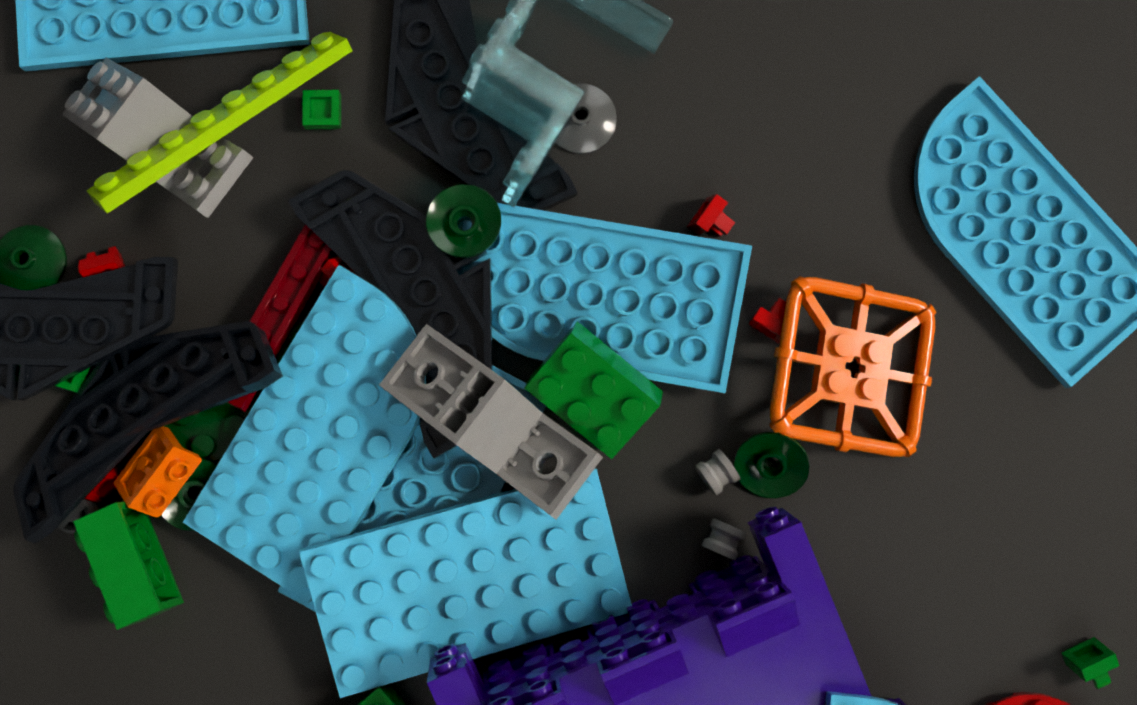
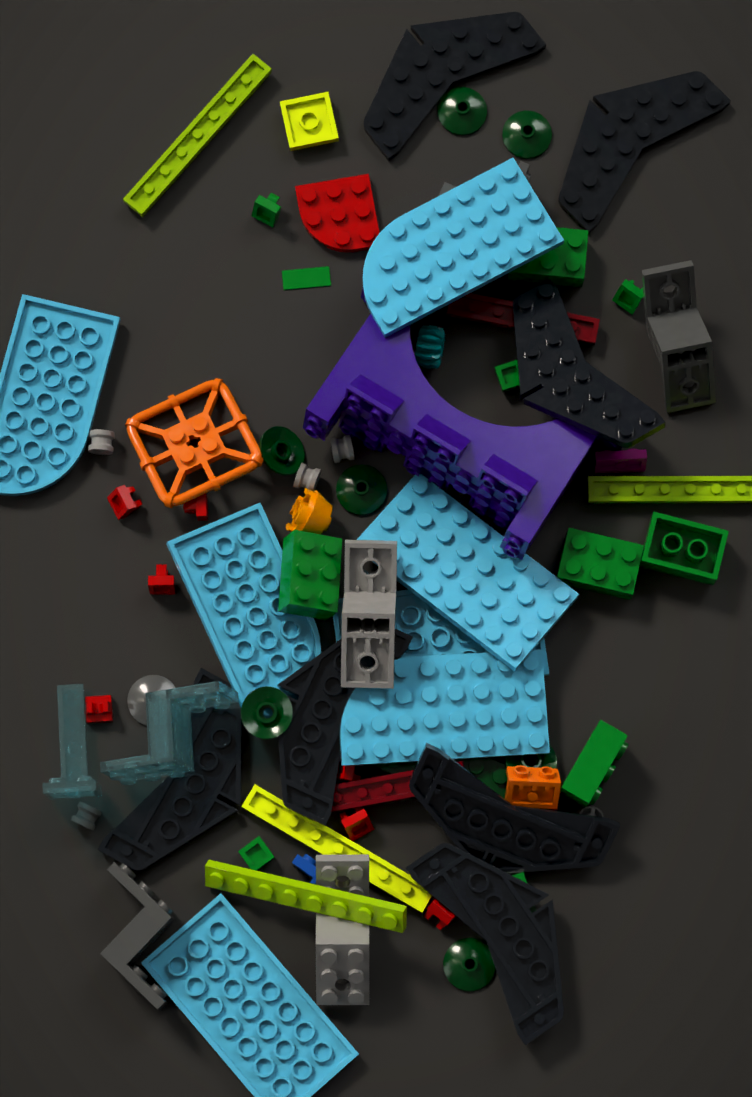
camera: 125 degrees left, 5 degrees down
(259, 202) = (329, 842): none -> neon yellow plate
(266, 153) = (306, 865): none -> blue bracket
(270, 243) = (357, 824): none -> red tile
(613, 50) = (99, 709): none -> red tile
(640, 522) = (361, 502): none -> dark green dish
(668, 442) = (310, 513): none -> light orange cone
(839, 236) = (122, 501): none -> red tile
(928, 262) = (101, 442): none -> light grey wheel
(968, 648) = (306, 278): none -> green sticker

